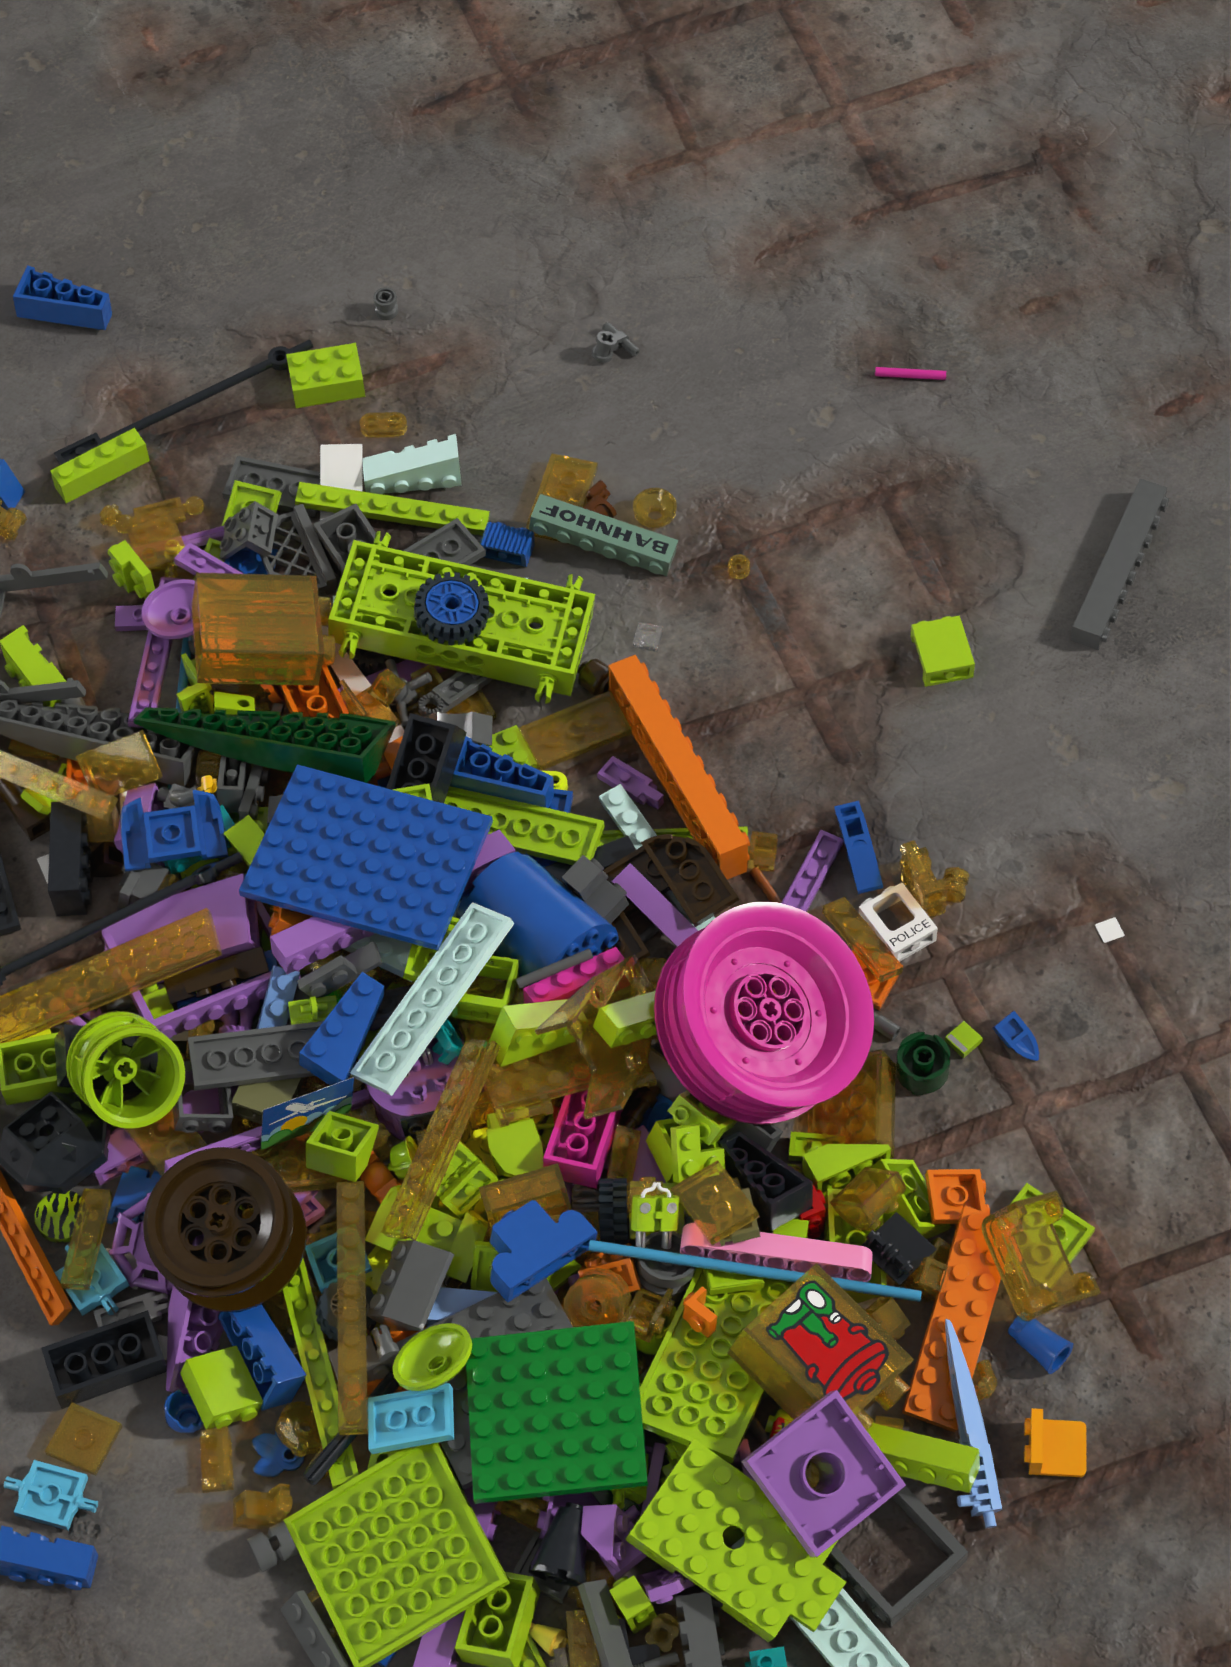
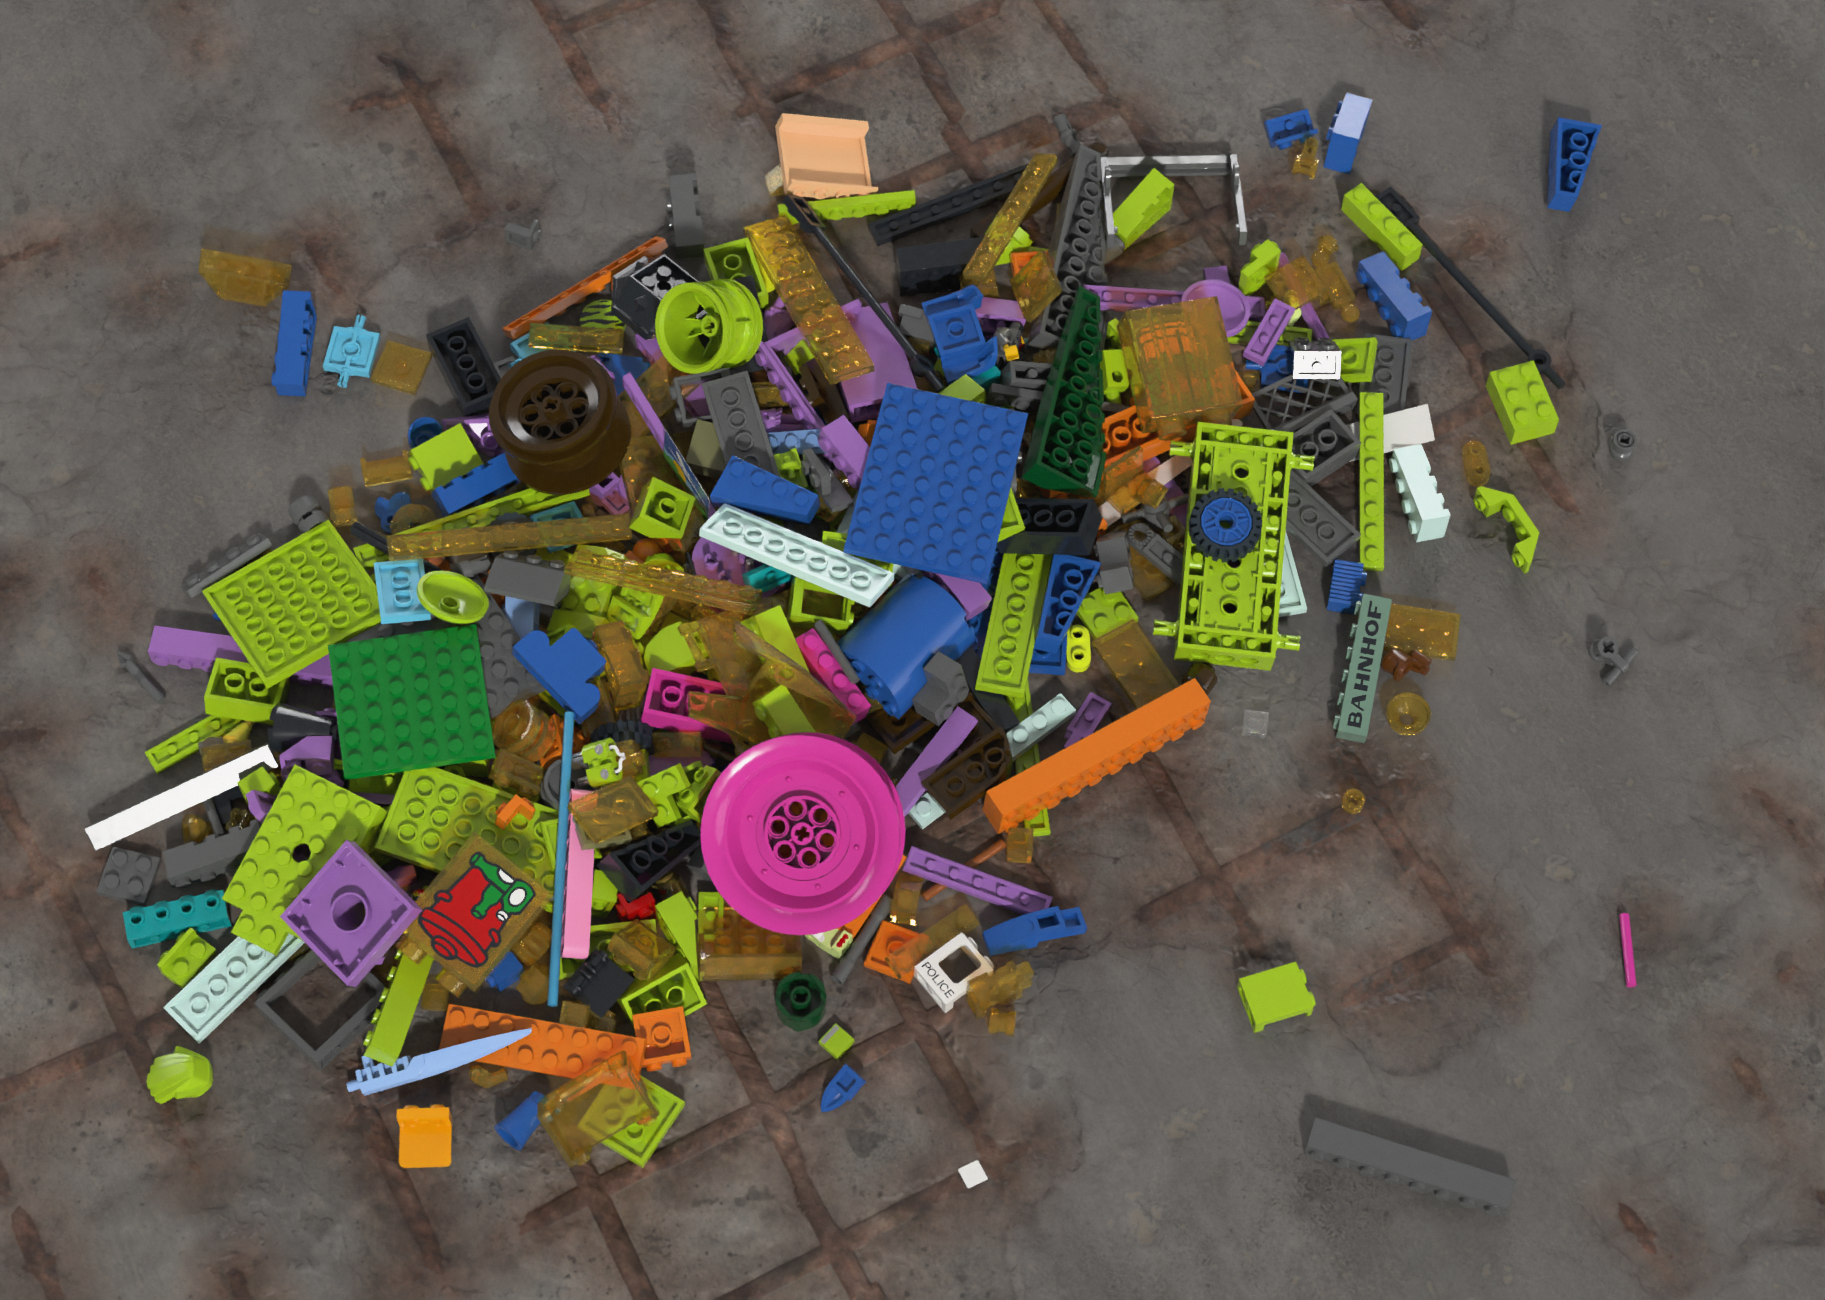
camera: 80 degrees right, 5 degrees up
(186, 463) = (1393, 297): none -> blue wedge
(491, 393) = (1493, 501): none -> lime slope

